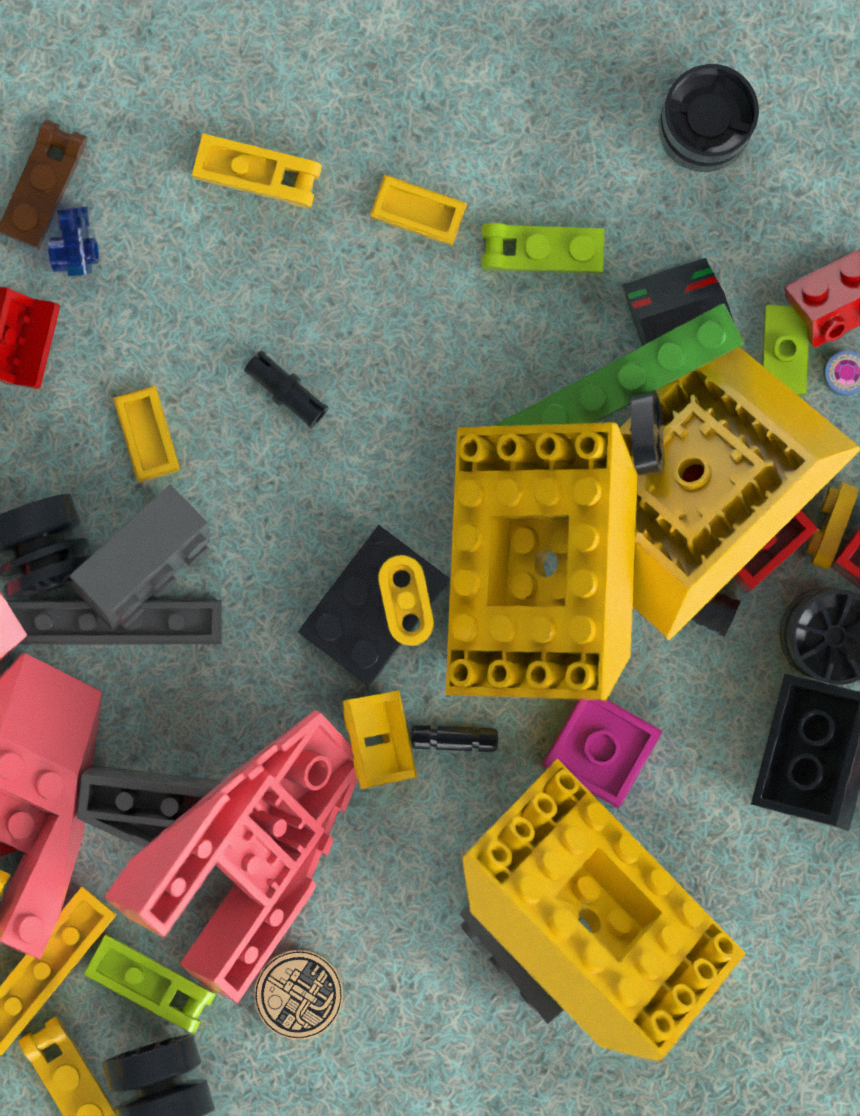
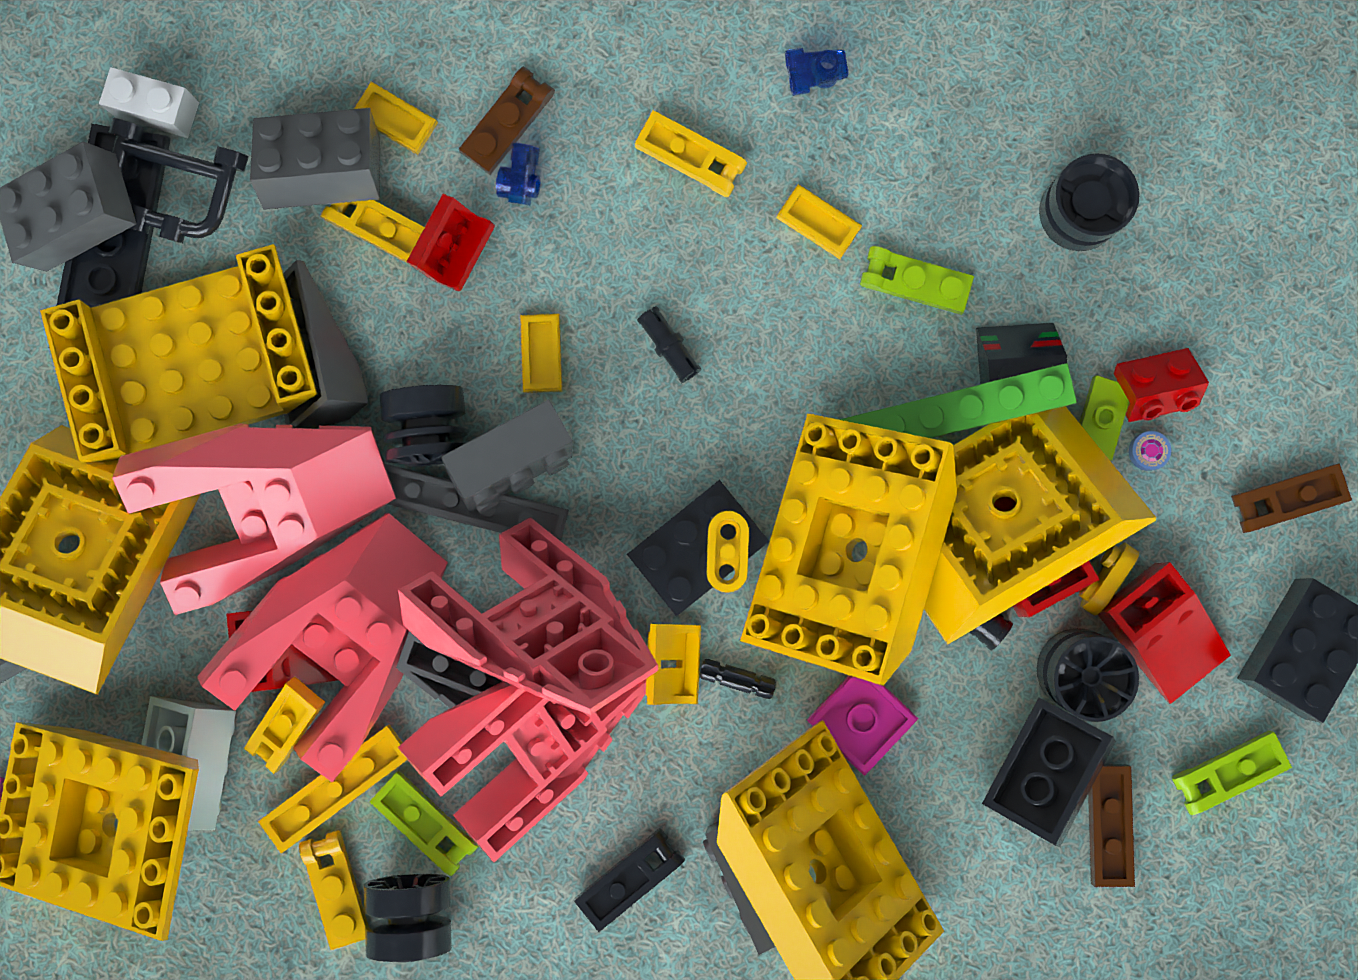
camera: 15 degrees right, 0 degrees up
(239, 739) = (553, 639): none -> coral wedge
(298, 994) = (549, 864): tile -> none
(363, 48) = (807, 72): none -> clear blue plate
(389, 989) = (628, 881): none -> black plate
(647, 433) = (973, 459): black beam -> none

